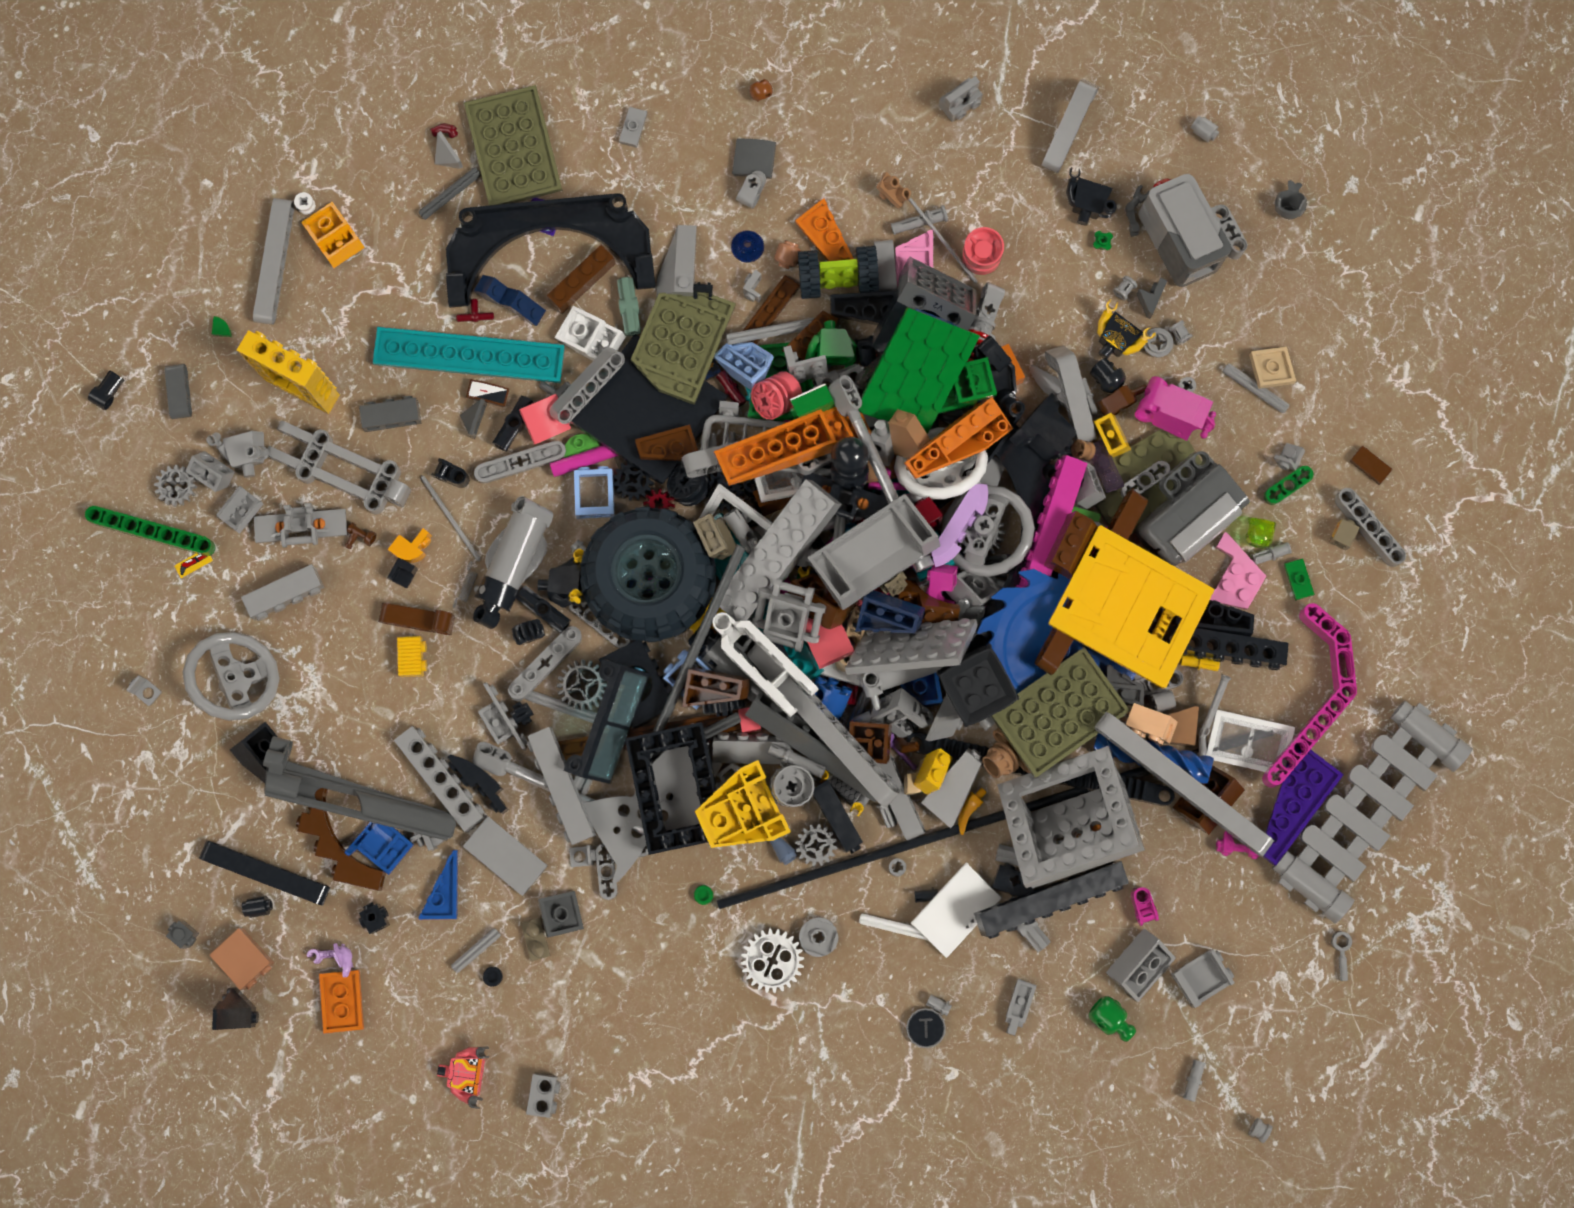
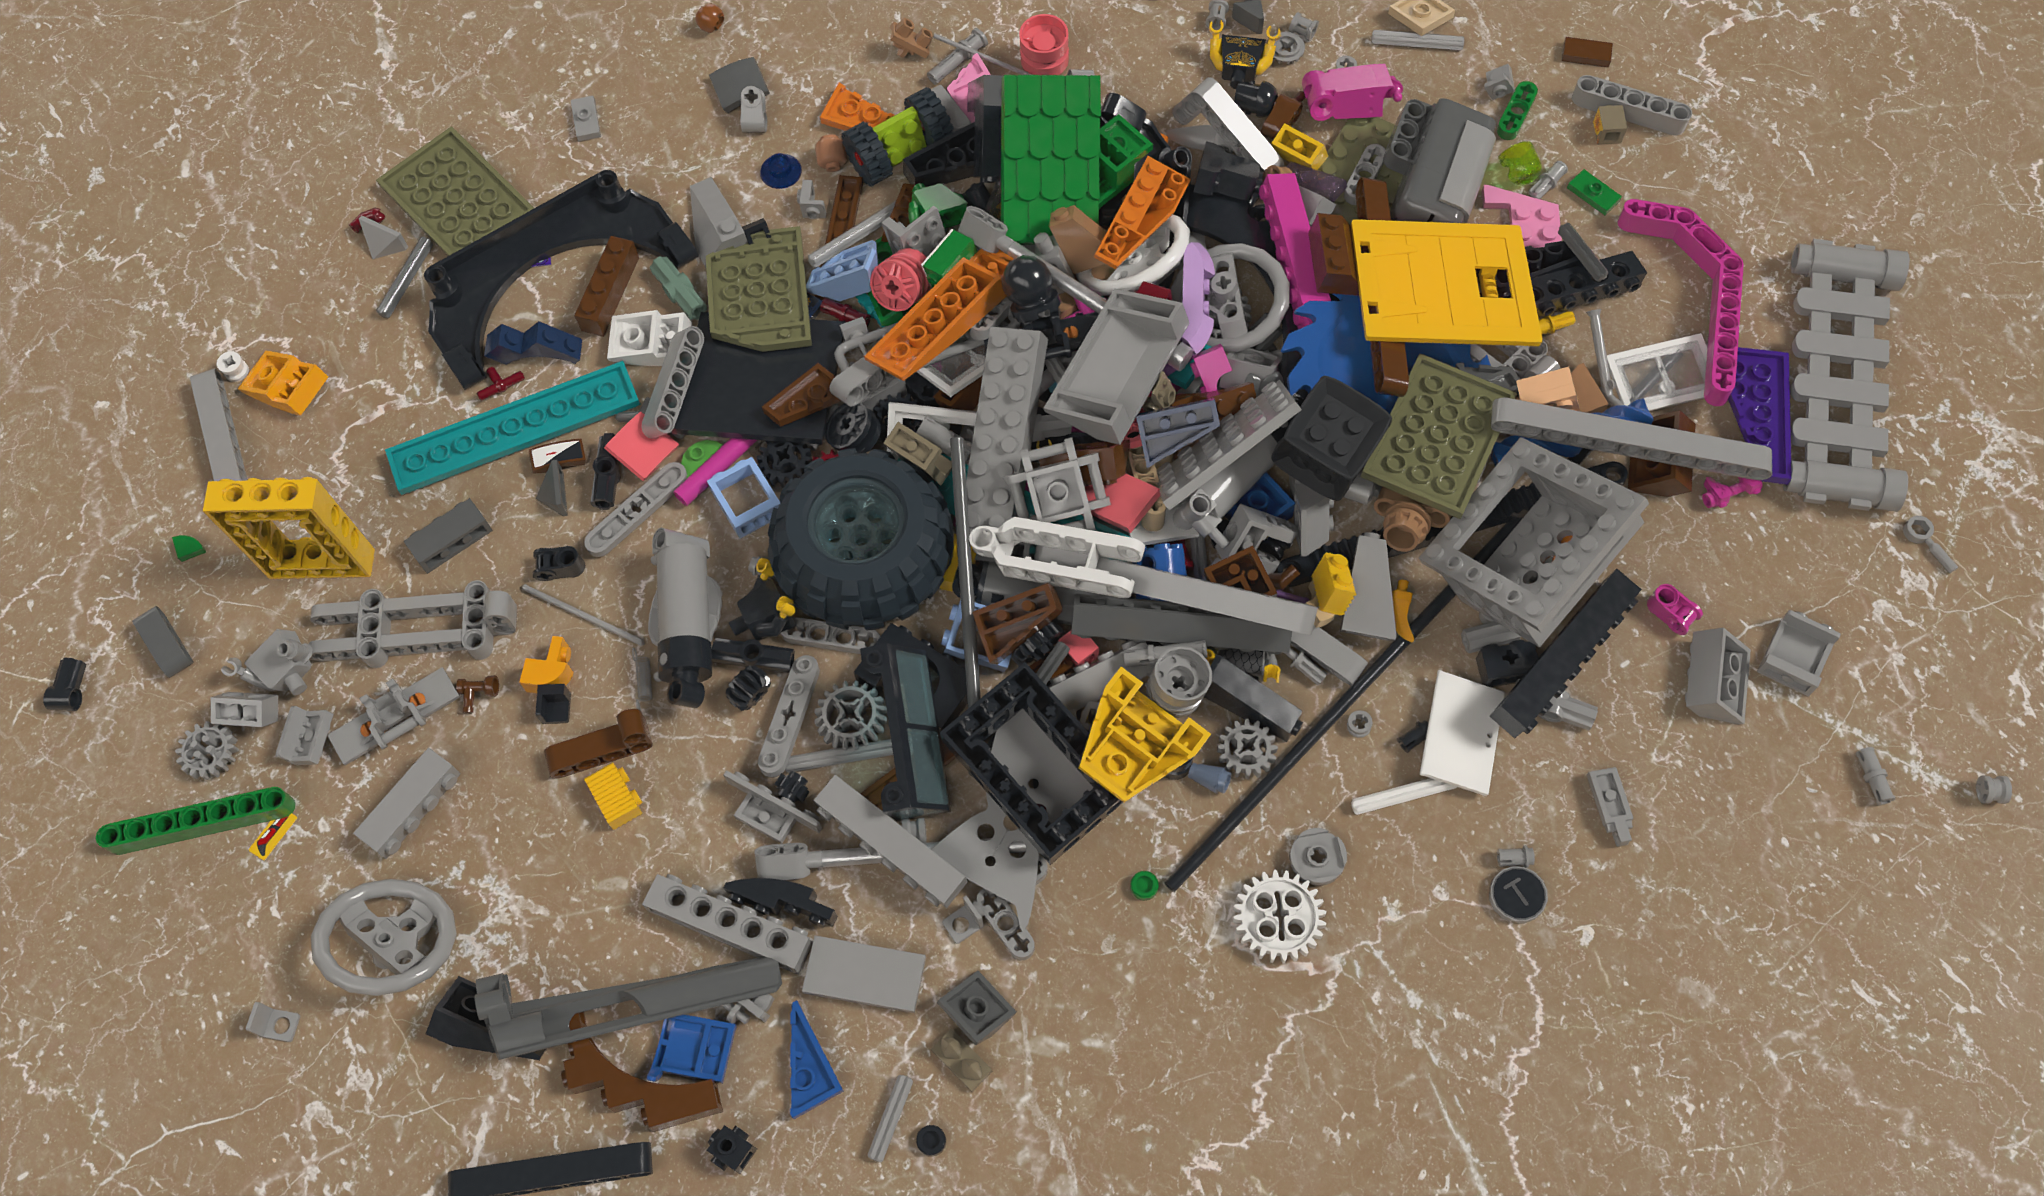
camera: 25 degrees left, 15 degrees down
(1111, 1018) = (1730, 754): green piece -> none
(1248, 629) = (1583, 252): none -> dark grey axle

